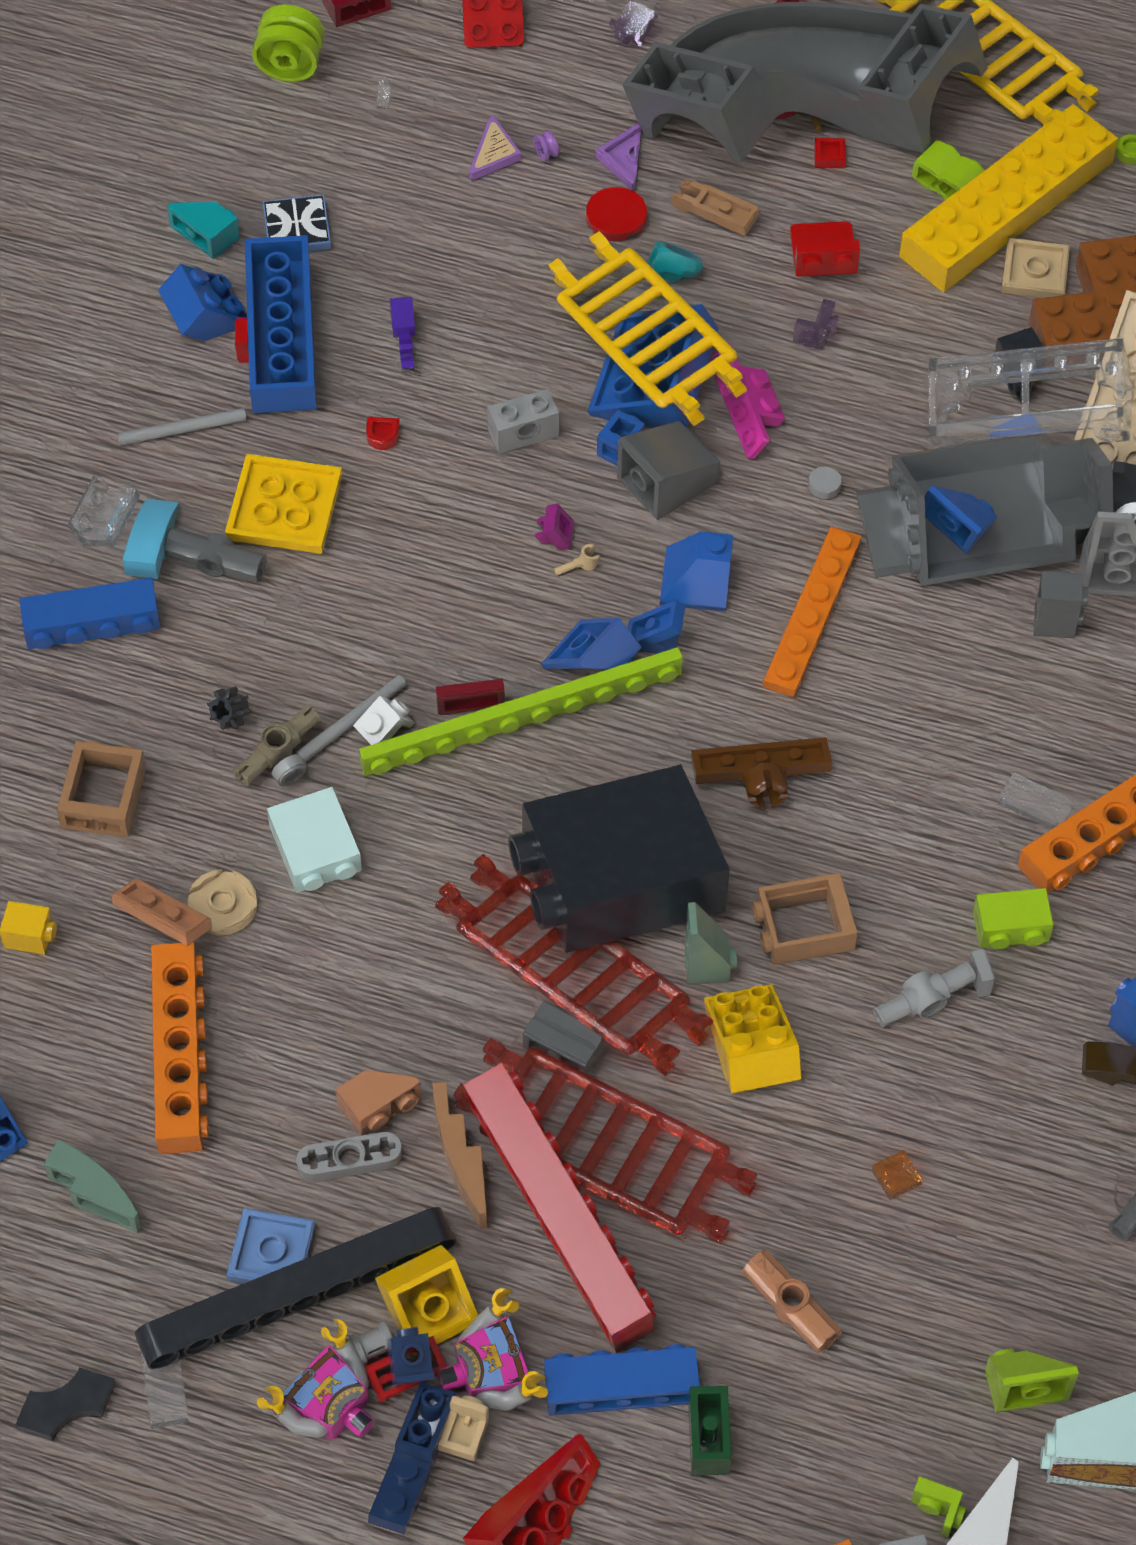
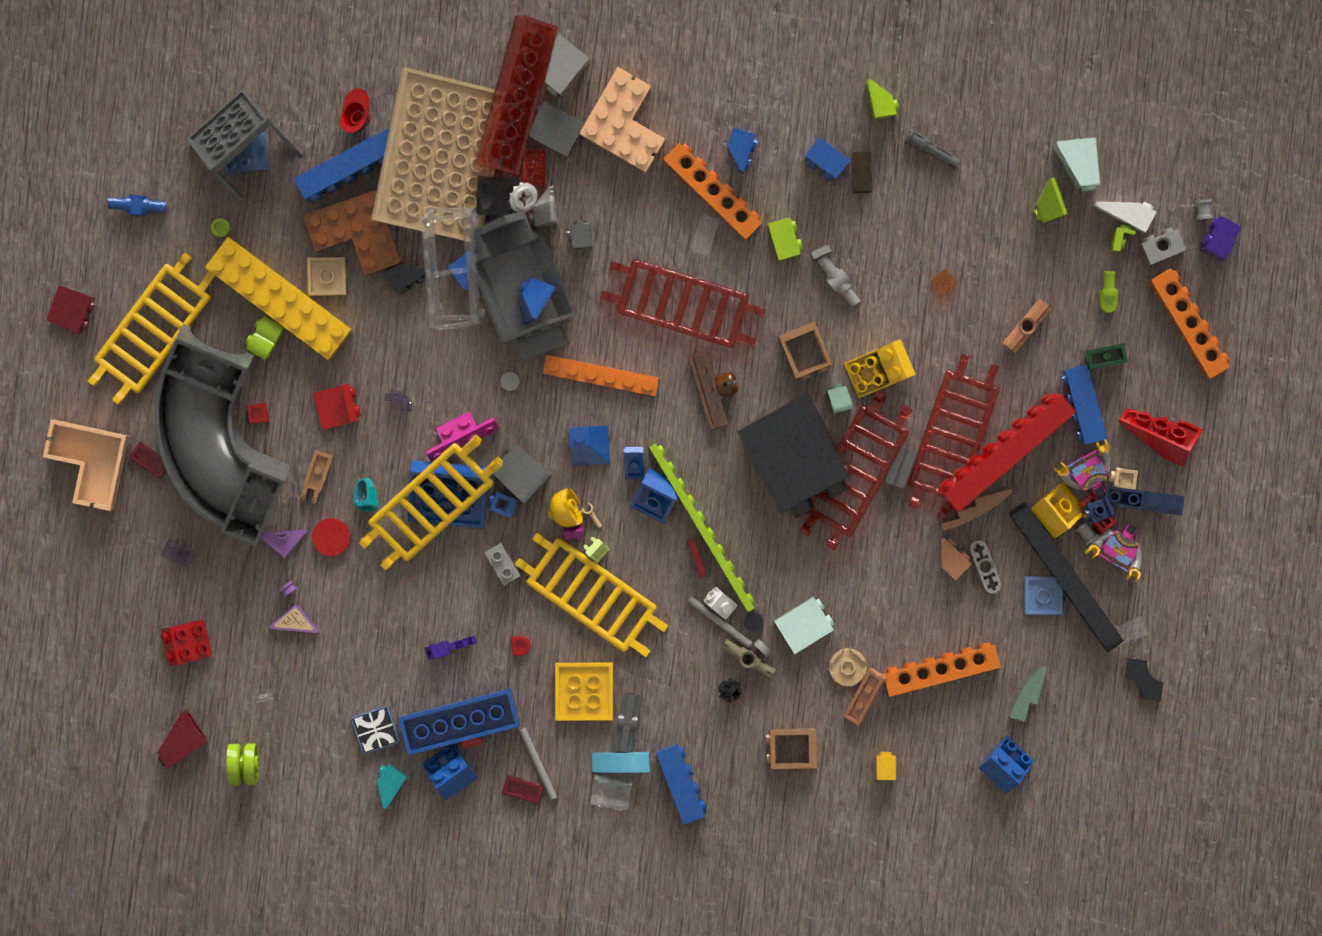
camera: 95 degrees left, 30 degrees up
(145, 400) = (522, 789): none -> dark red tile
(339, 768) = (753, 622): none -> black tile
(385, 611) = (578, 614): none -> yellow bar
(516, 555) = (596, 550): none -> yellowish green tile
(597, 518) = (564, 509): none -> yellow cylinder
(829, 1463) = (1108, 294): none -> lime arm
(881, 729) = (689, 282): none -> clear red bar

